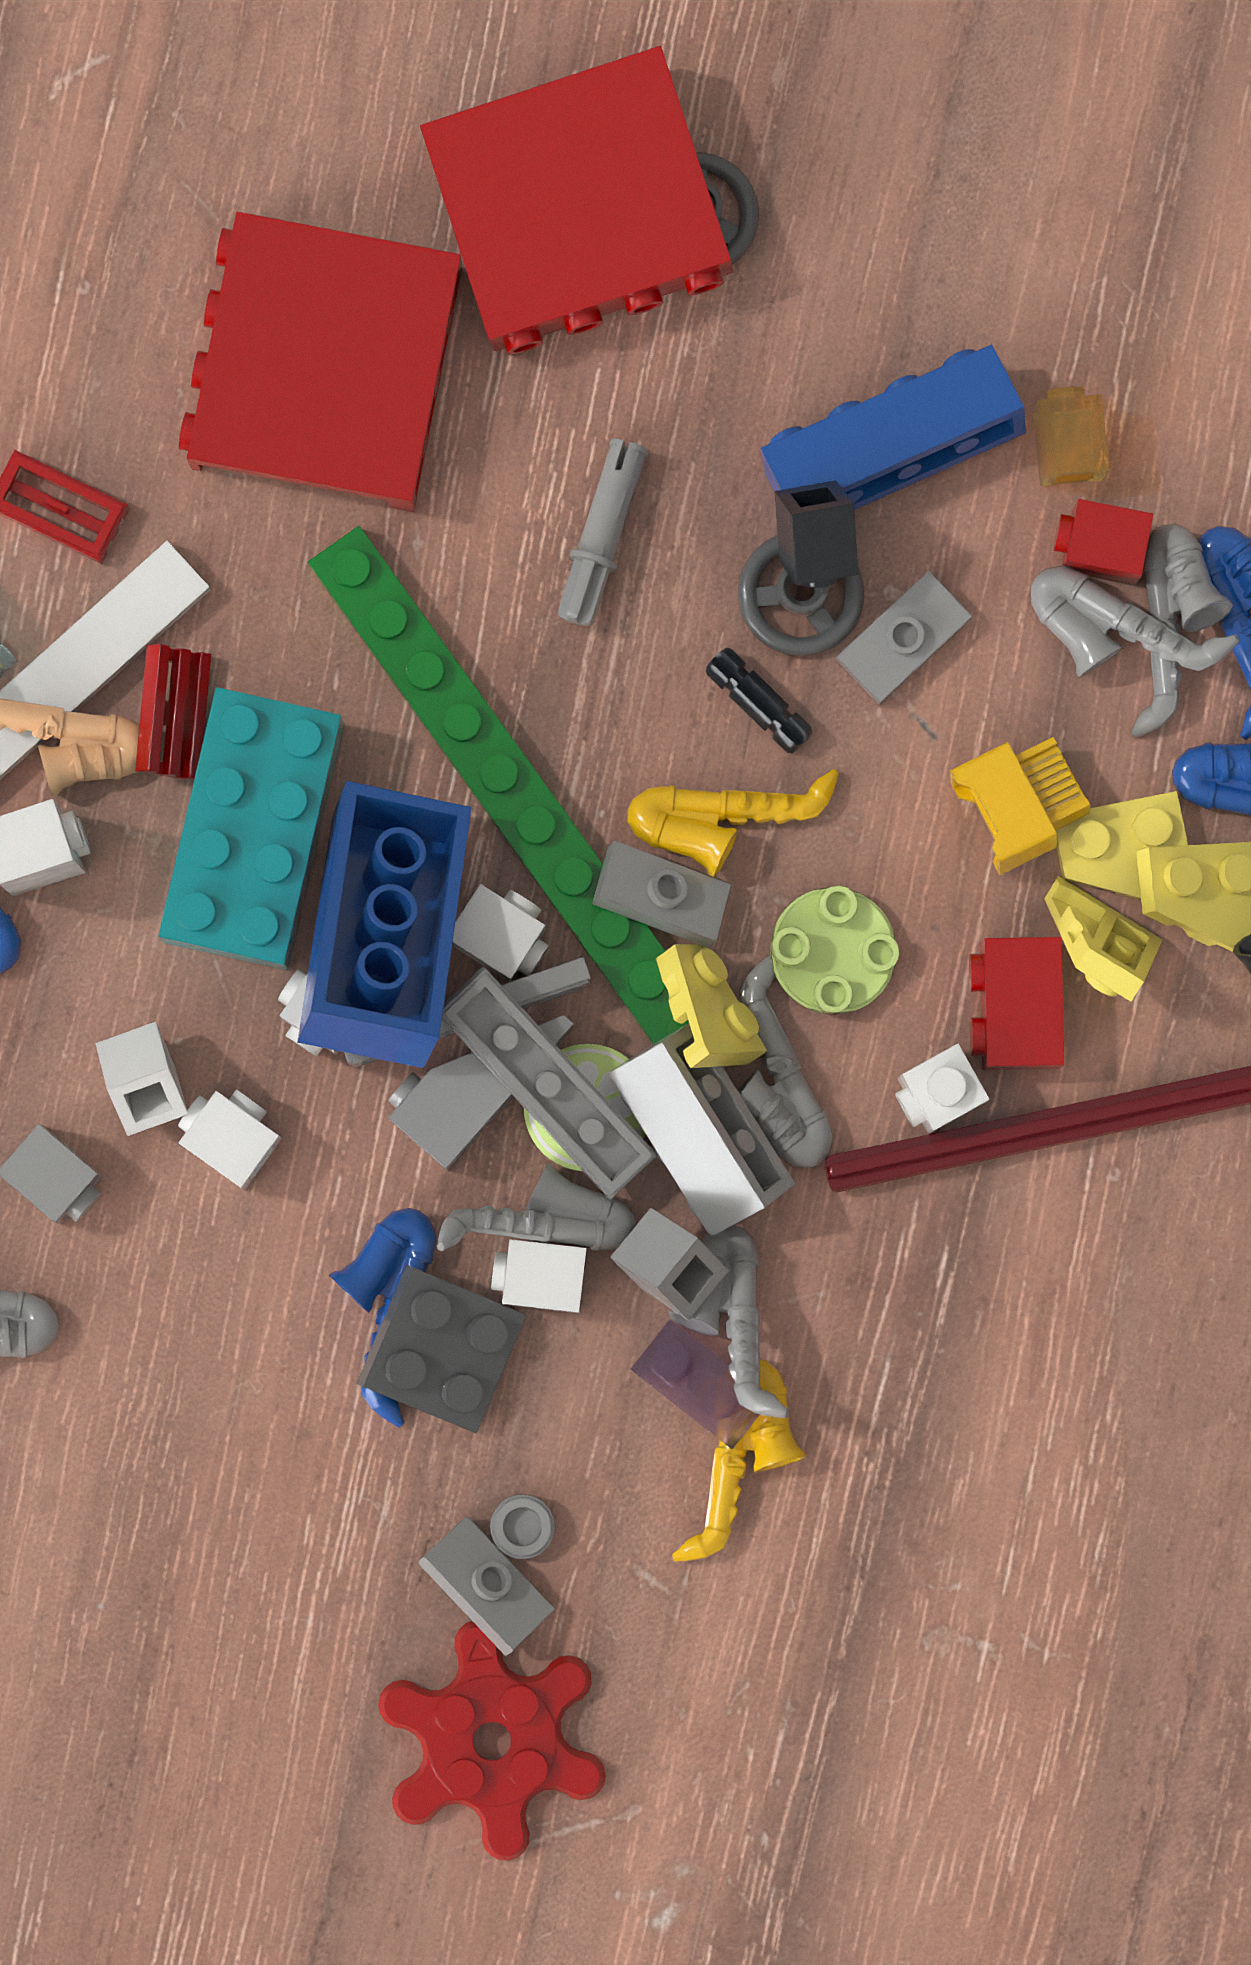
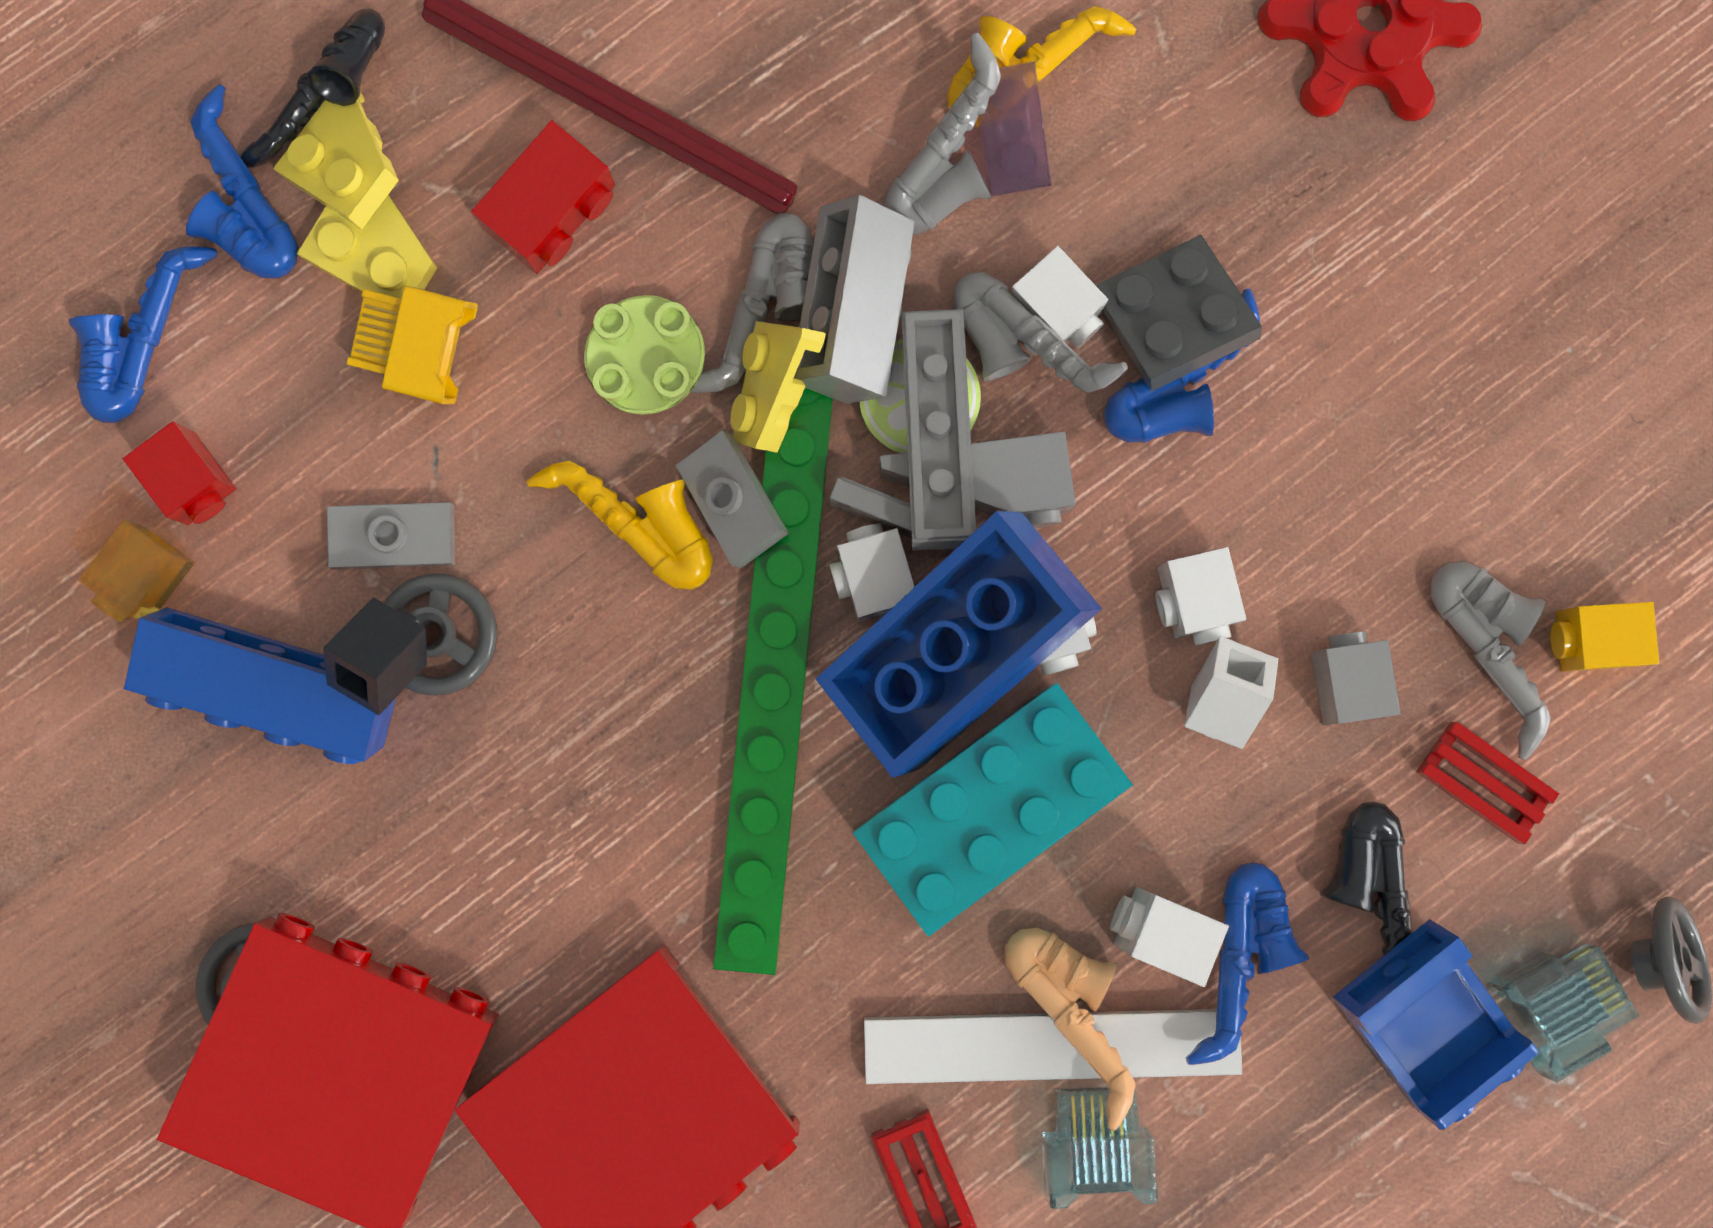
camera: 135 degrees left, 0 degrees up
(181, 714) = (966, 942): red tile -> none
(486, 1586) = (1286, 122): light grey plate -> none
(522, 1526) = (1222, 145): light grey tile -> none
(602, 533) = (539, 804): light grey axle -> none
(669, 1263) = (962, 224): light grey brick -> none
(758, 700) = (536, 581): black axle -> none
(940, 1090) = (655, 184): white brick -> none
(1084, 613) = (243, 437): light grey piece -> none
(1102, 941) = (443, 182): light yellow wing -> none
(1175, 585) = (157, 397): light grey piece -> none

